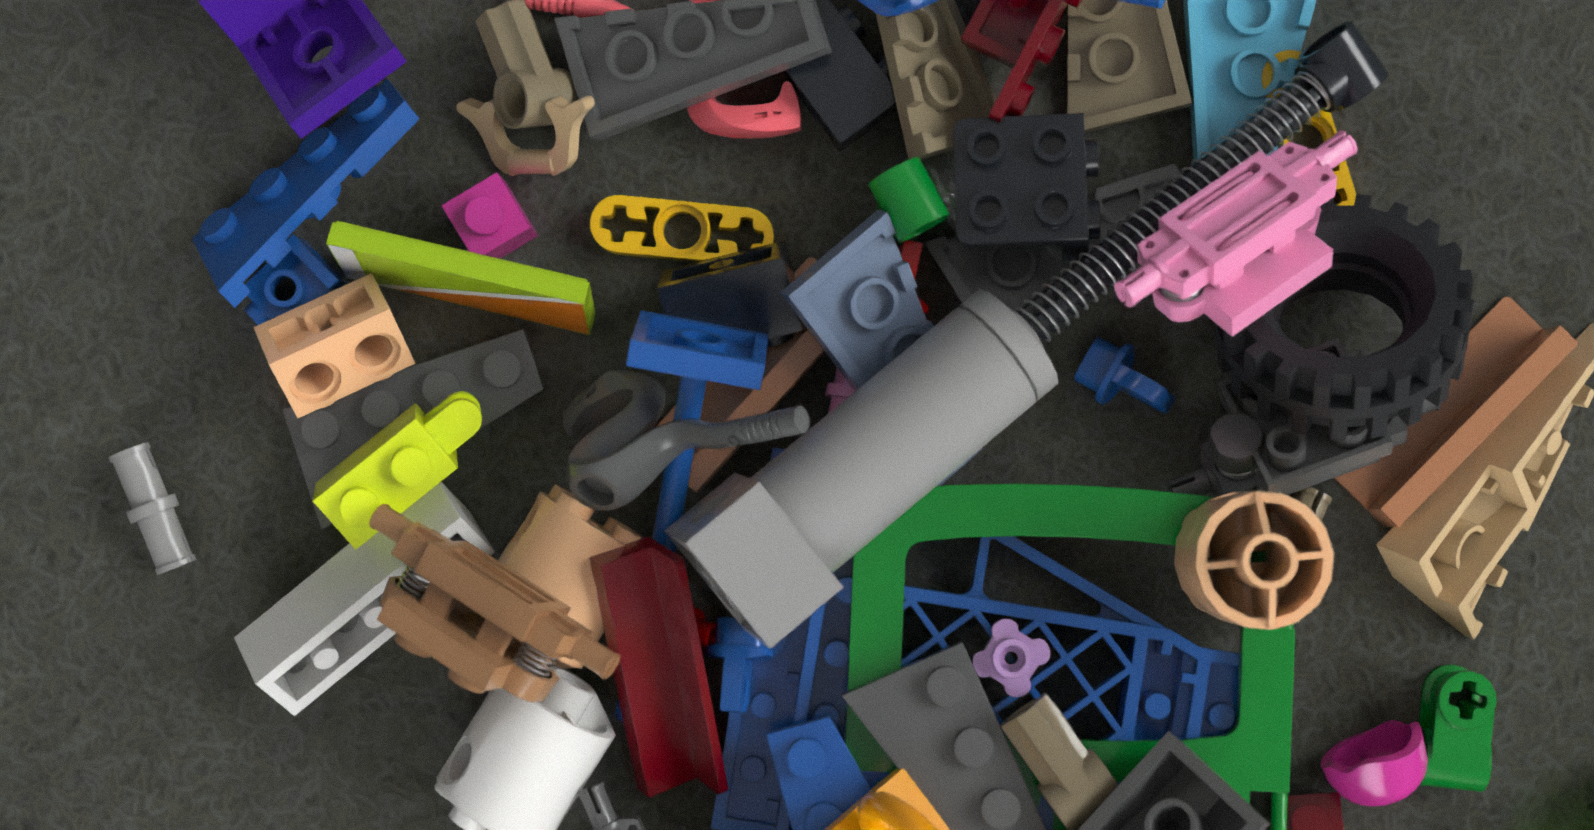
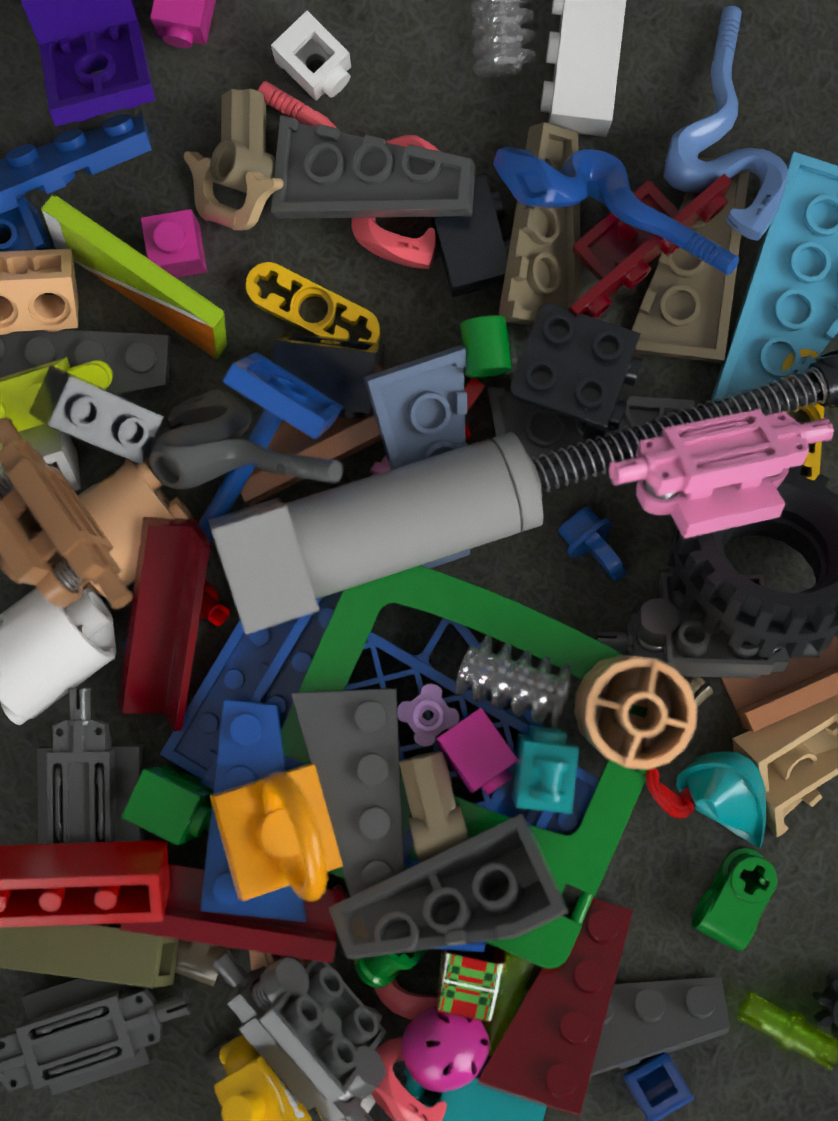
camera: 15 degrees right, 0 degrees up
(485, 460) = (95, 415): none -> brick
(738, 652) = (227, 635): blue piece -> none
(1088, 680) = (477, 753): none -> dark pink brick
(1098, 578) = (514, 680): none -> clear piece
(1174, 669) = (544, 770): none -> teal brick
(1385, 607) = (720, 787): none -> teal piece
(1391, 764) = (669, 901): dark pink helmet -> none

